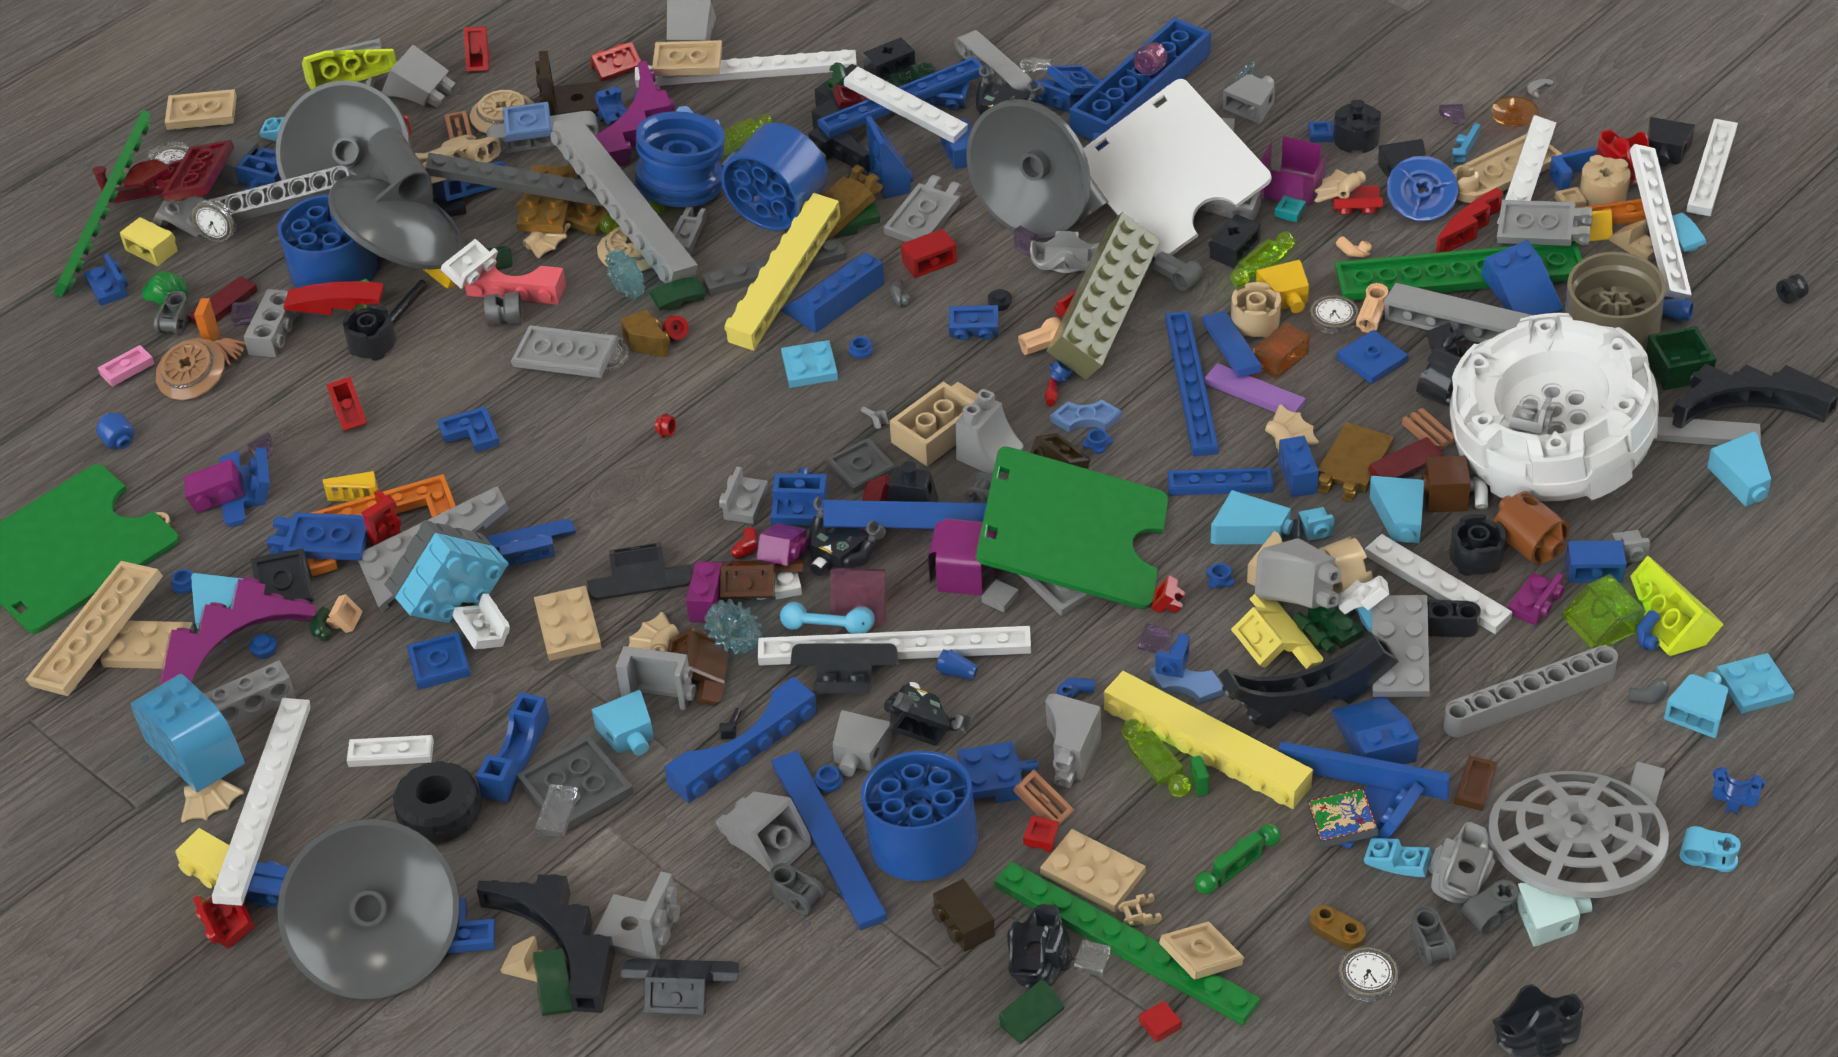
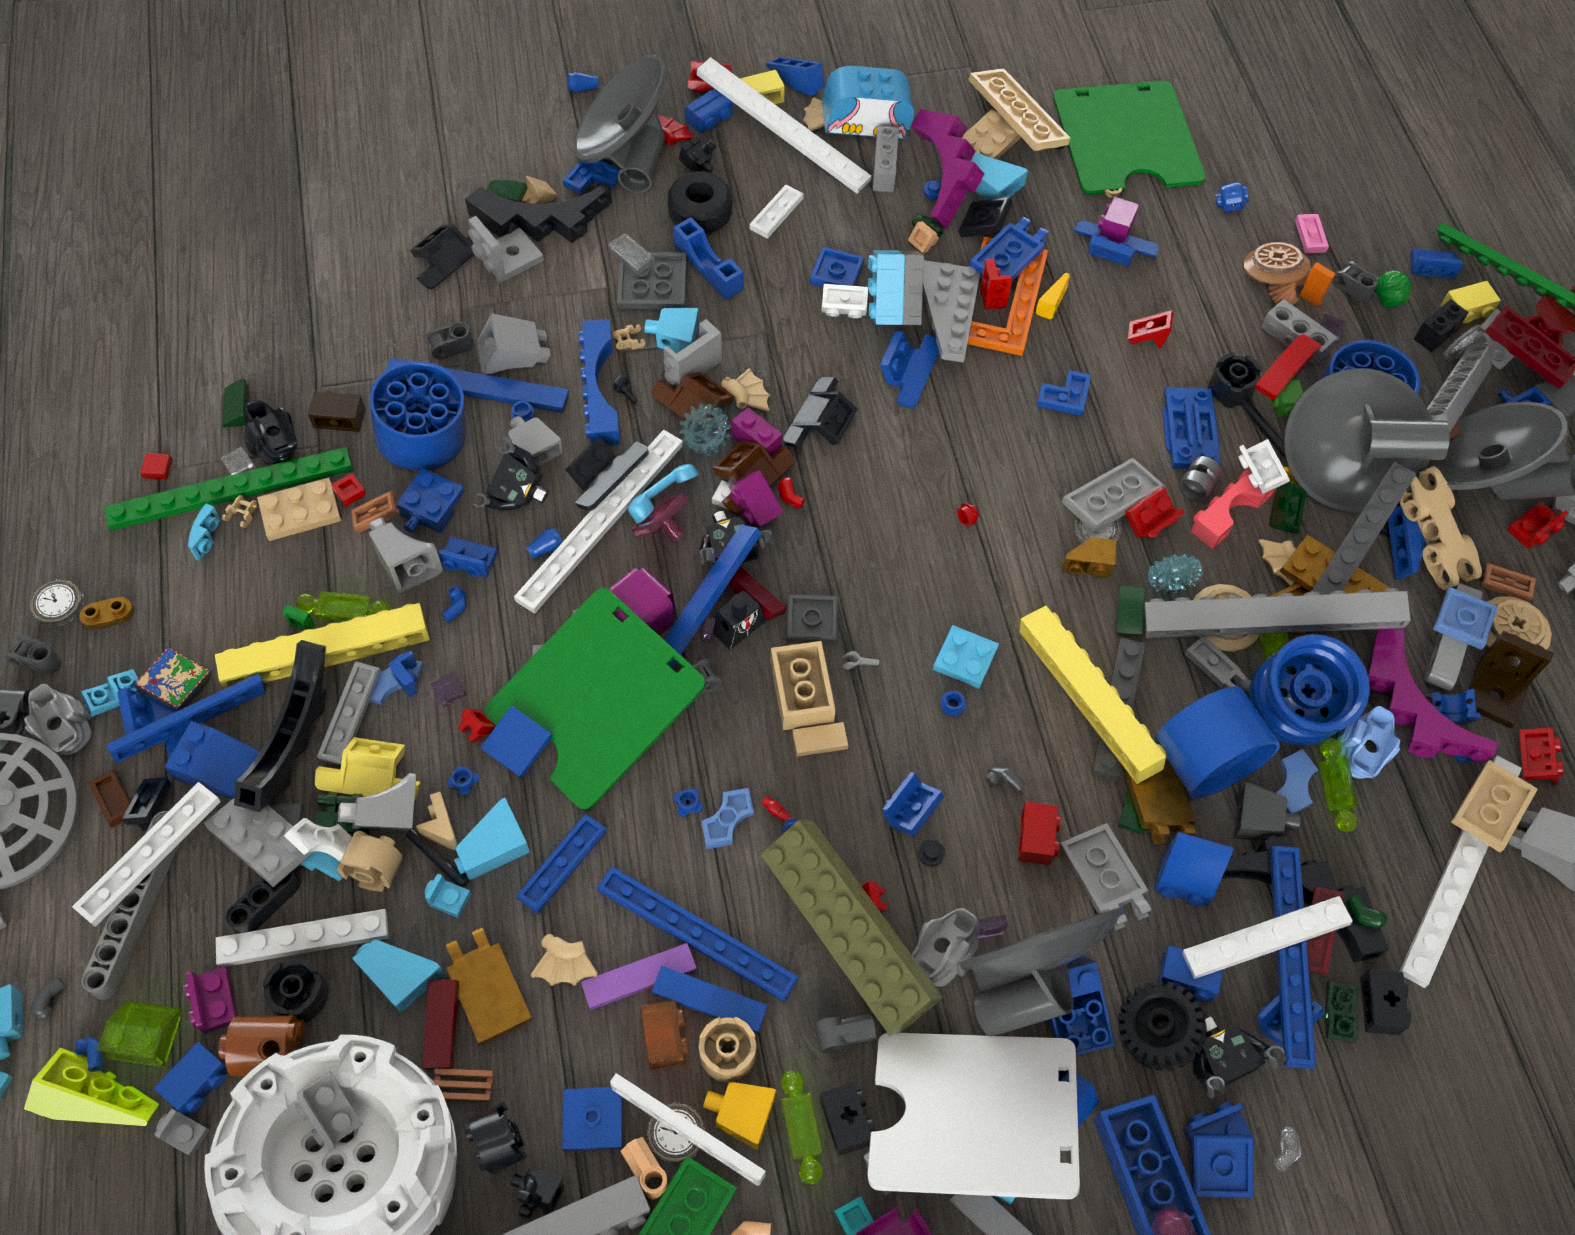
camera: 120 degrees right, 15 degrees up
(158, 840) = (799, 74): none -> blue slope
(181, 581) = (1036, 175): blue plate -> none
(194, 246) = (1441, 325): none -> black brick
(234, 292) = (1356, 320): dark red tile -> none
(264, 441) = (1151, 273): clear purple tile -> none
(315, 1036) = (581, 82): none -> blue cone
(442, 346) = (1190, 425): none -> blue piece
(567, 623) = (807, 352): tan plate -> none
(568, 316) = (1153, 514): none -> red bracket
(656, 765) = (629, 343): none -> tan piece
(676, 327) = (1084, 583): red tile -> none
(742, 497) = (842, 519): light grey bracket -> none
(795, 497) = (804, 549): blue plate -> none
(837, 292) = (1043, 727): blue slope -> none
(983, 432) = (752, 713): light grey hips -> none
(1005, 71) = (1310, 1101): light grey beam -> none
(1021, 711) = (467, 557): none -> blue bracket
(1039, 338) = (849, 843): light nougat piece -> none
(1059, 449) = (694, 759): dark brown bracket -> none
(1155, 559) = (516, 741): none -> blue tile
(1200, 910) = (200, 539): none -> medium azure slope
(1201, 950) = (169, 515): tan tile -> none
(1209, 685) = (349, 712): none -> light grey tile
(1238, 858) = (212, 597): green plate -> none
(1298, 466) = (513, 927): blue brick -> none
(1329, 297) = (687, 1130): none -> white tile
(1446, 483) = (380, 1021): reddish brown head -> none
(1454, 743) = (146, 802): none -> black hinge
(1491, 687) = (146, 854): none -> white plate

